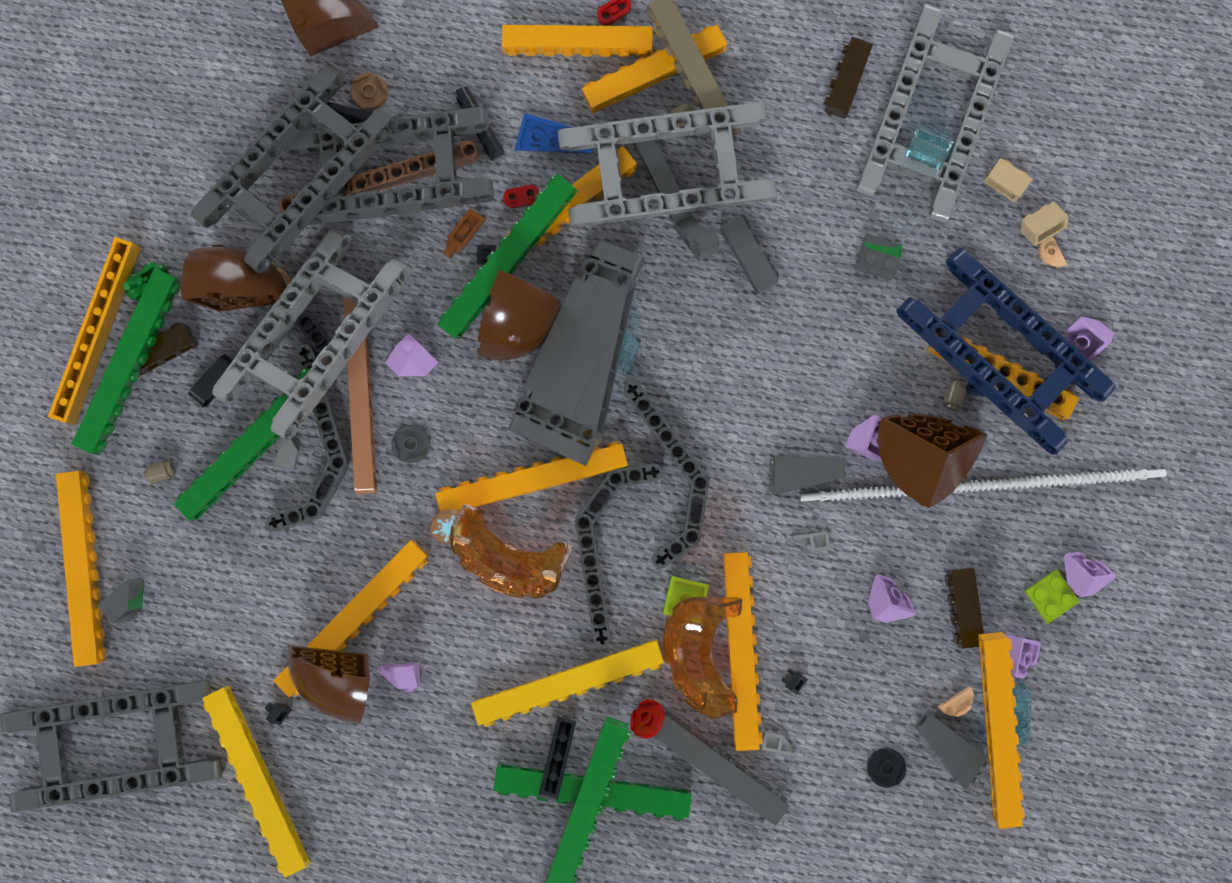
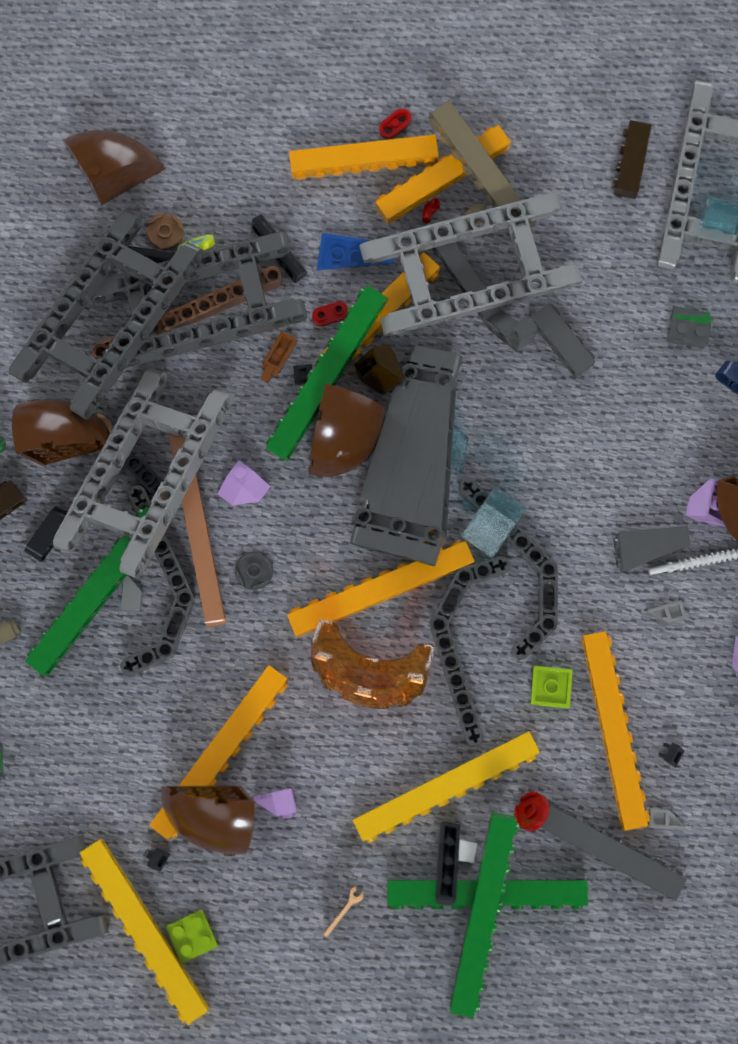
camera: 15 degrees left, 5 degrees down
(302, 791) = (192, 936): none -> lime plate
(403, 108) = (203, 242): none -> neon yellow tile
(441, 524) = (299, 646): medium nougat tile -> none
(459, 781) = (352, 900): none -> light nougat flag
(561, 259) = (380, 369): none -> dark brown slope
(579, 747) = (467, 851): none -> white slope
(636, 102) = (429, 209): none -> red arm
(651, 429) = (494, 522): none -> clear light blue slope
(690, 653) = (564, 740): clear orange windscreen -> none

